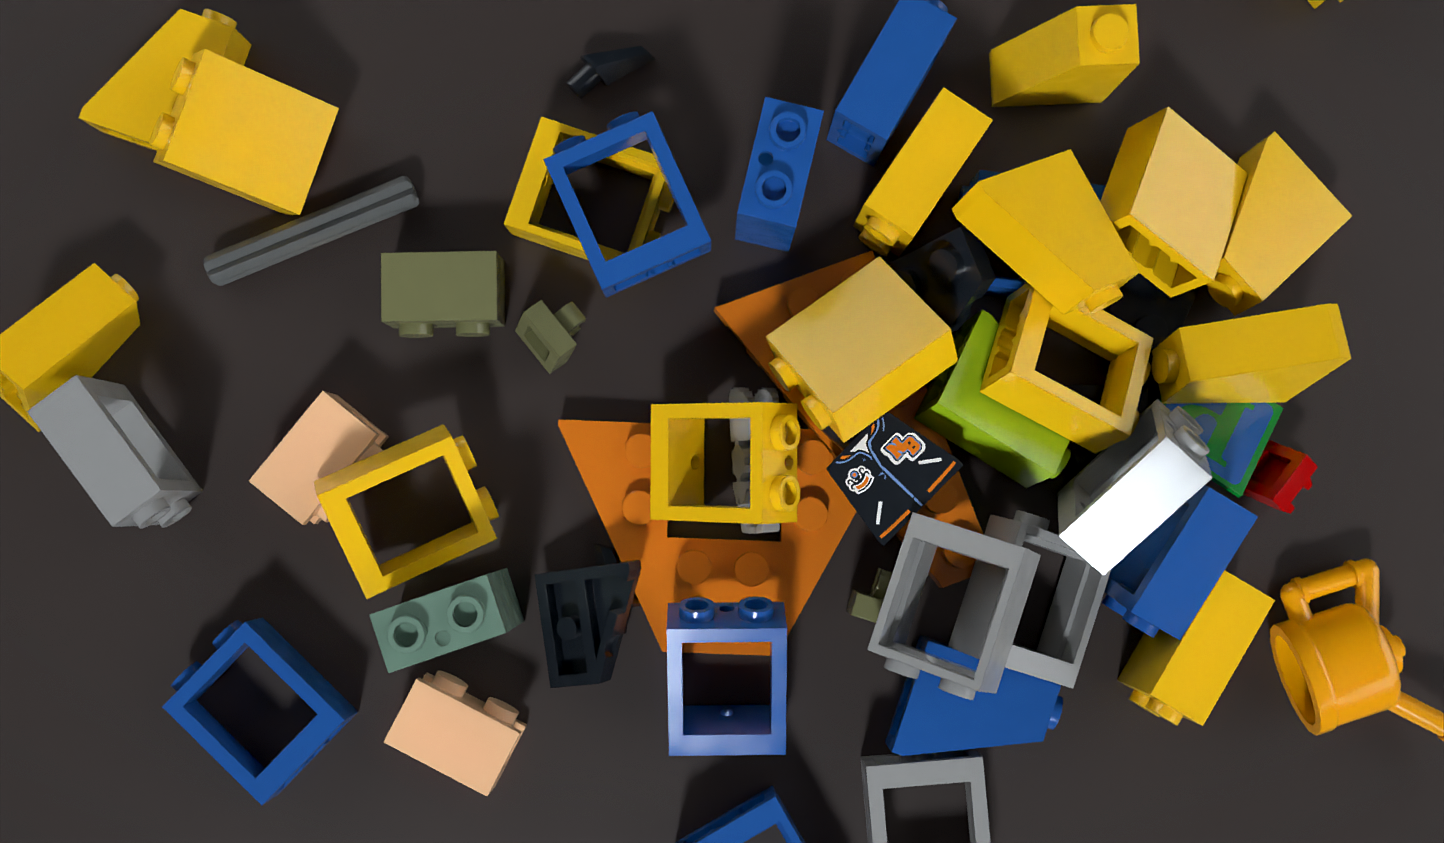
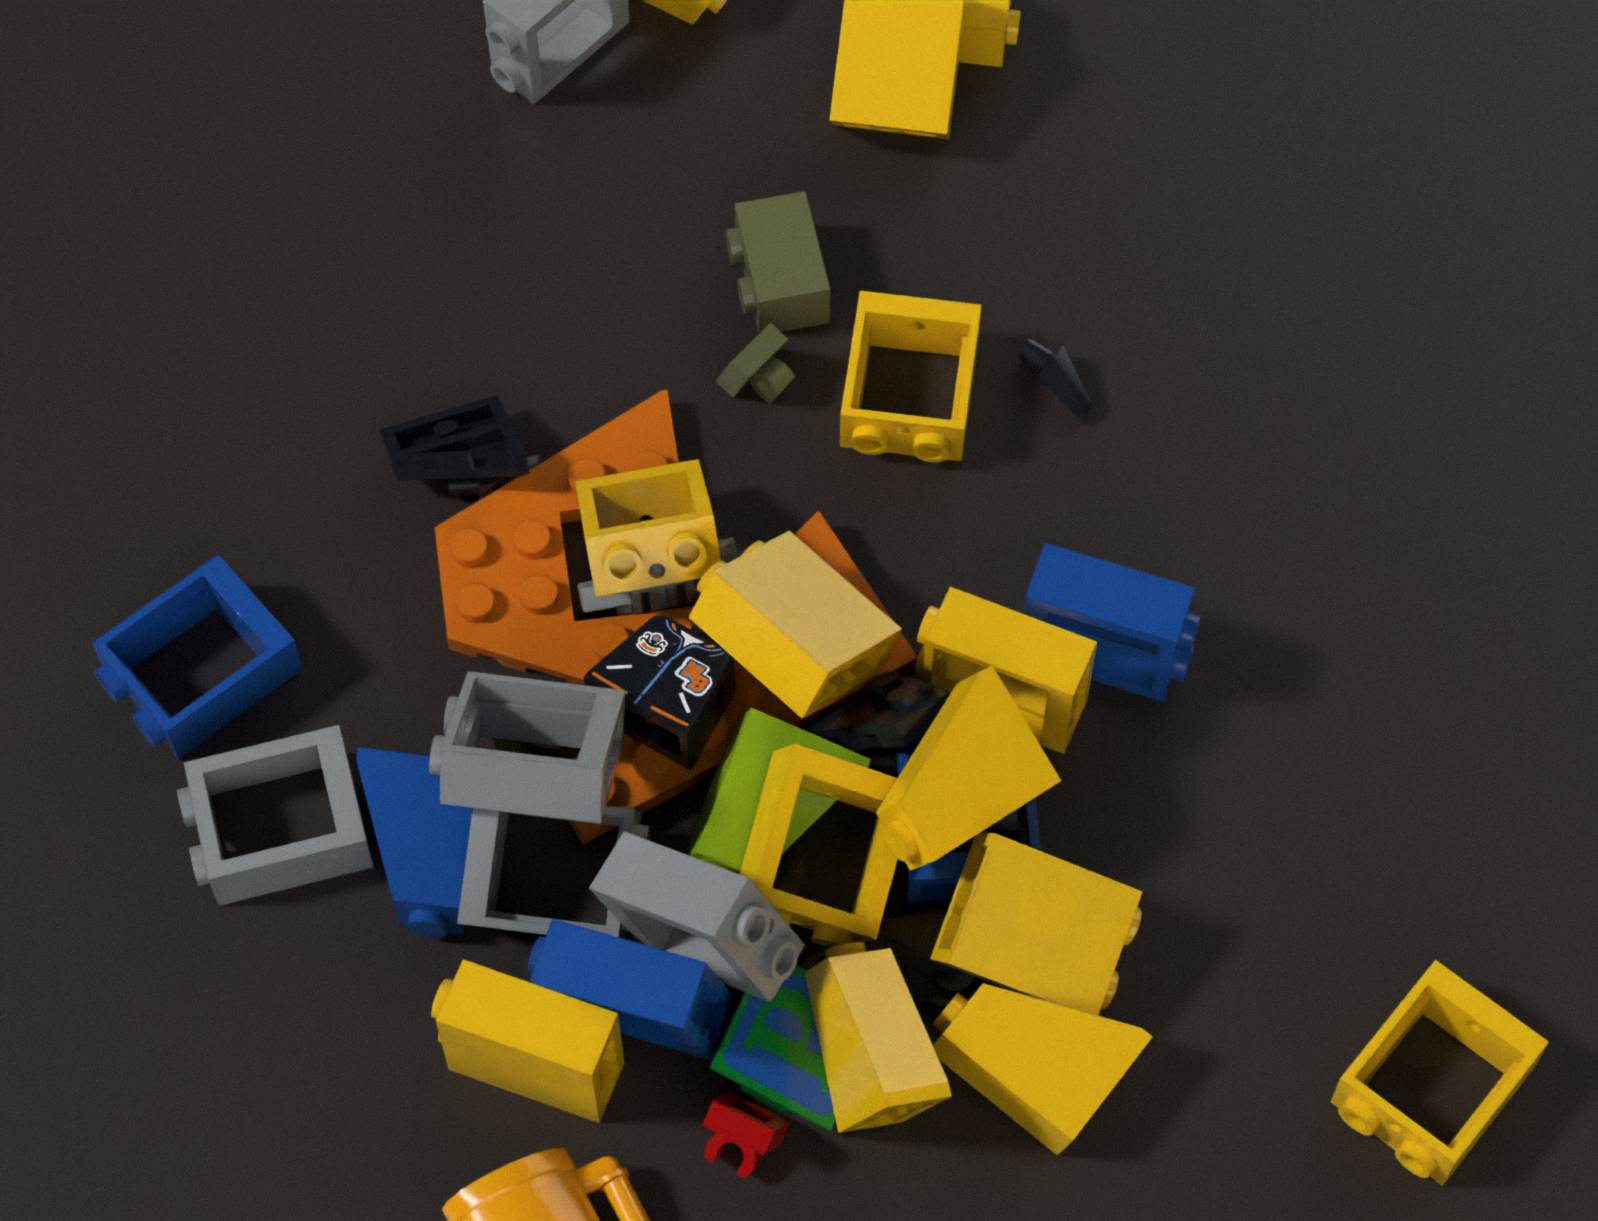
camera: 85 degrees right, 25 degrees down
(311, 231) = (820, 146): dark grey axle -> none
(319, 444) = (585, 186): light nougat brick -> none
(331, 708) = (295, 227): blue window -> none
(338, 486) = (508, 213): yellow window -> none
(447, 620) = (439, 301): sand green window -> none
(456, 731) = (320, 352): light nougat brick -> none
(651, 257) = (855, 422): blue window -> none
(727, 728) = (357, 585): blue window -> none
(777, 174) = (988, 514): blue window -> none
(1067, 58) = (1179, 808): yellow slope -> none

